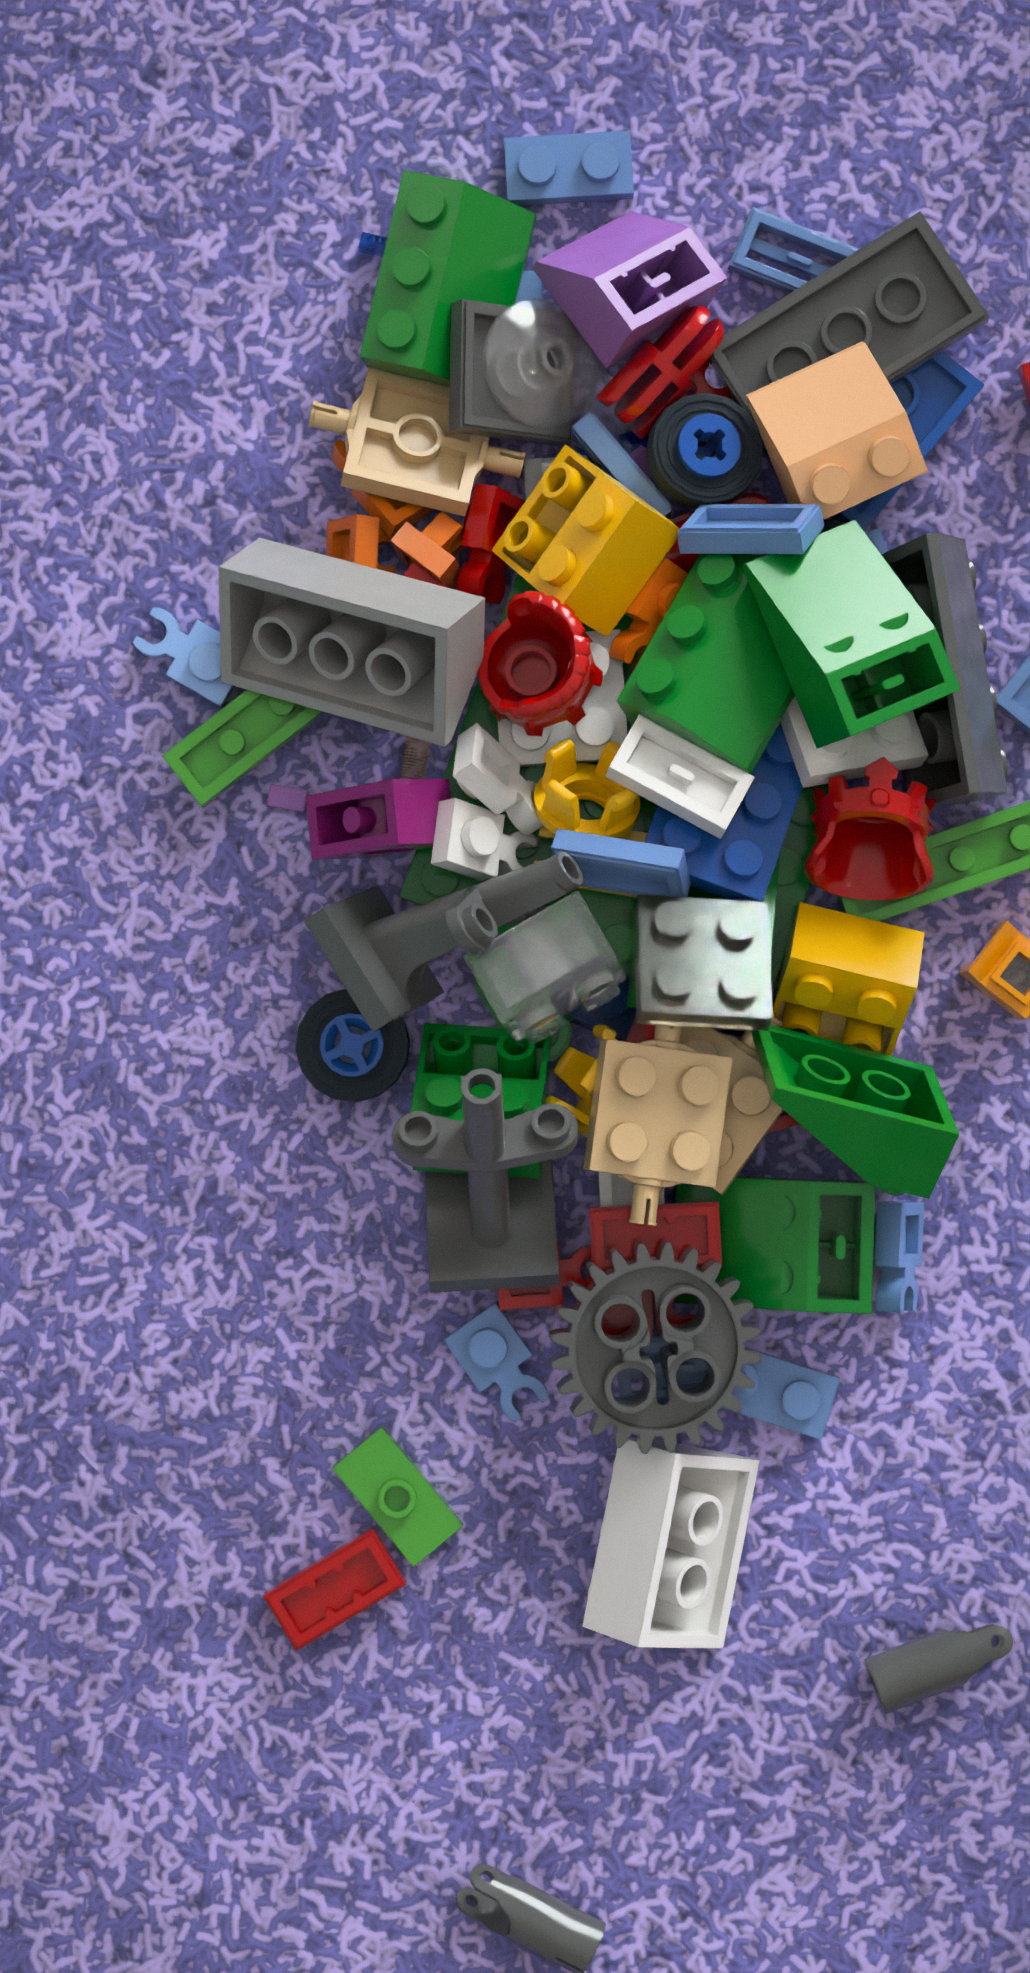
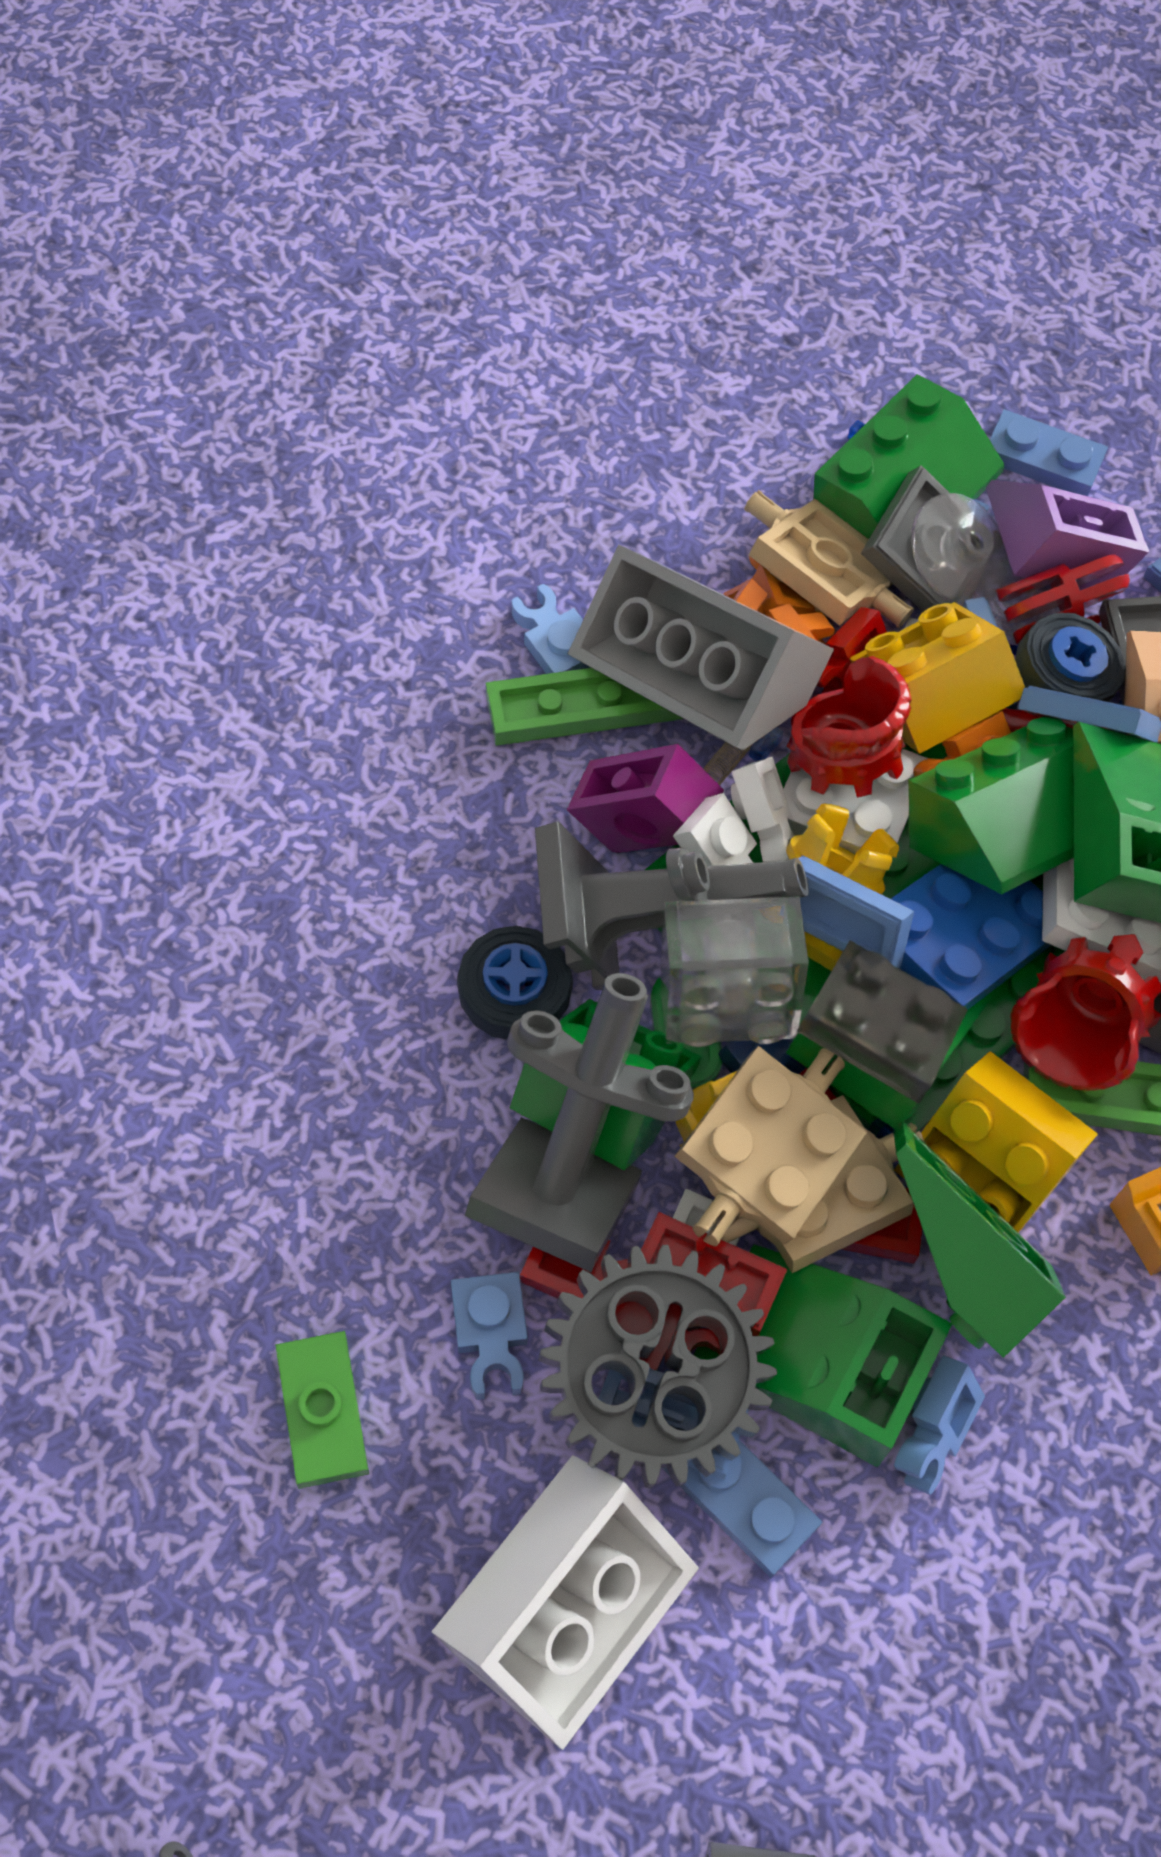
camera: 20 degrees right, 25 degrees down
(287, 798) = (567, 770): medium lavender piece -> none
(334, 1588) = (207, 1464): red plate -> none
(679, 776) = (936, 865): white plate -> none

